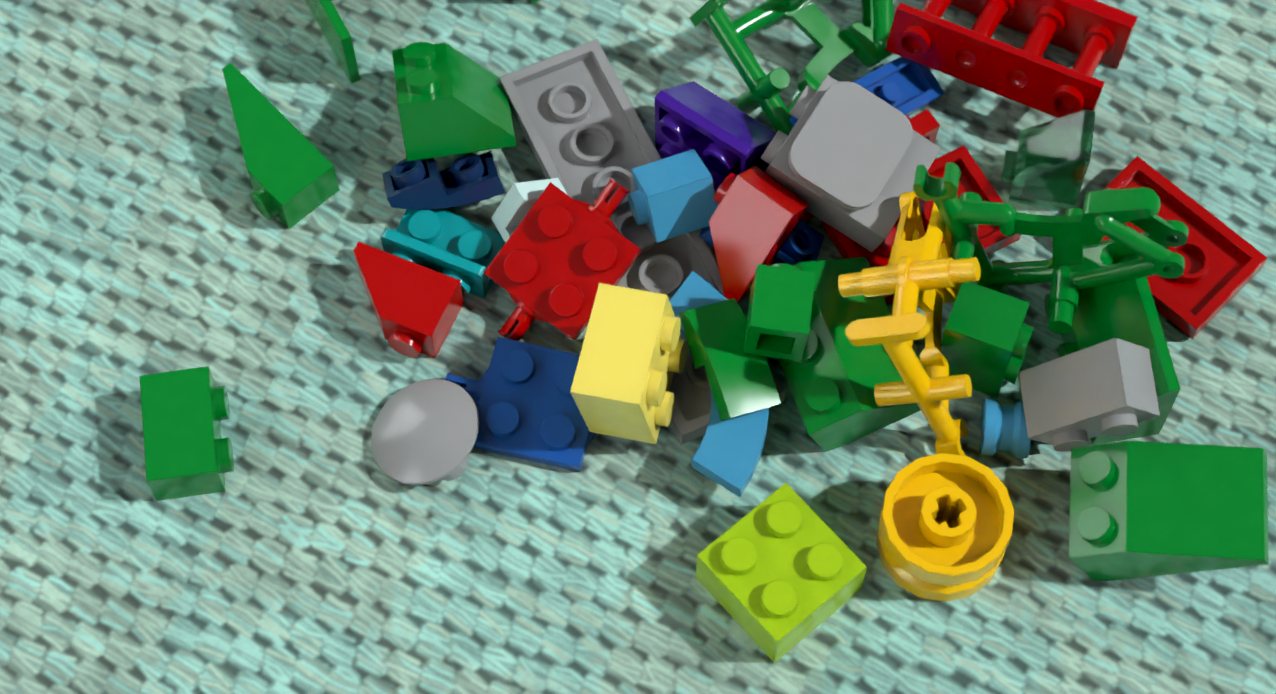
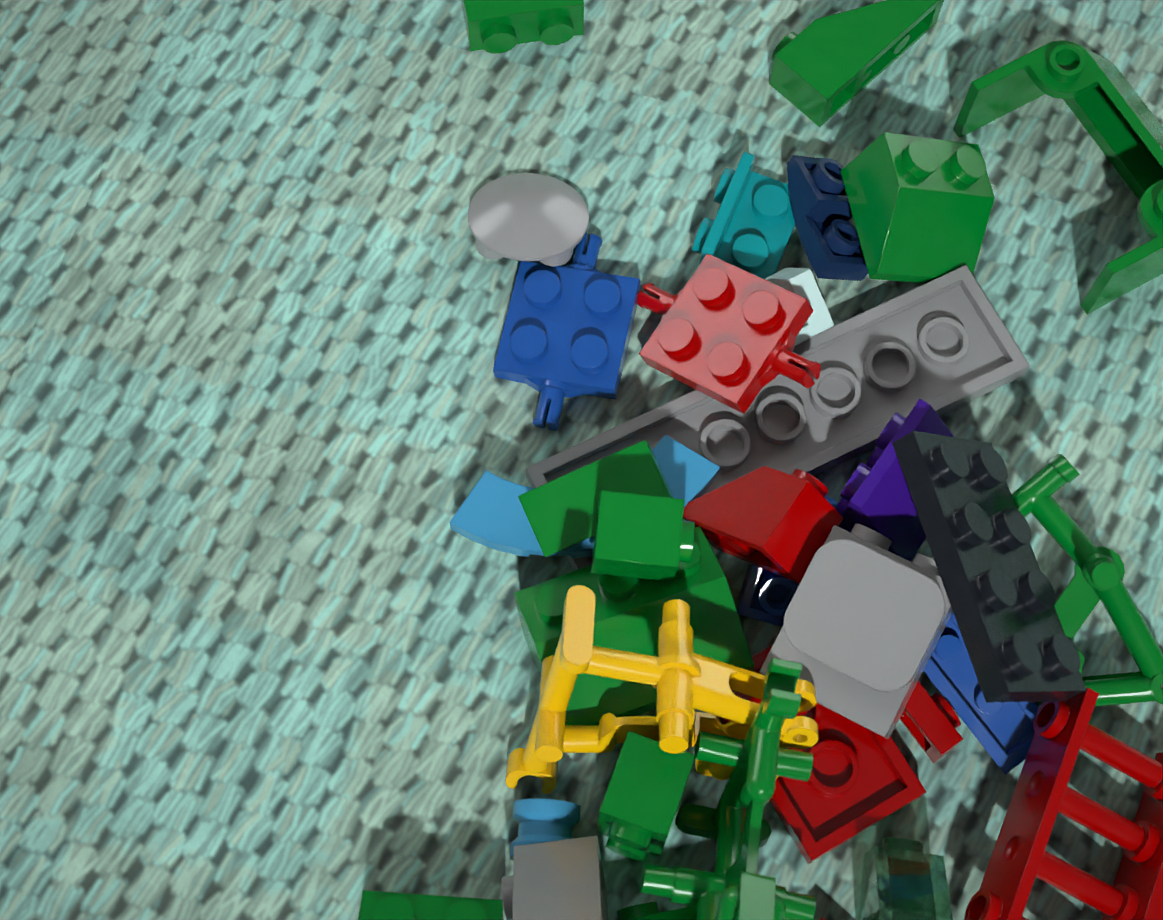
camera: 85 degrees right, 5 degrees up
(409, 300) = (676, 189): red slope -> none
(629, 364) = (580, 385): light yellow brick -> none
(673, 195) = (810, 434): dark azure brick -> none
(780, 572) = (361, 571): lime brick -> none
(807, 57) = (989, 569): none -> black plate
(944, 527) = (402, 712): yellow wheel -> none

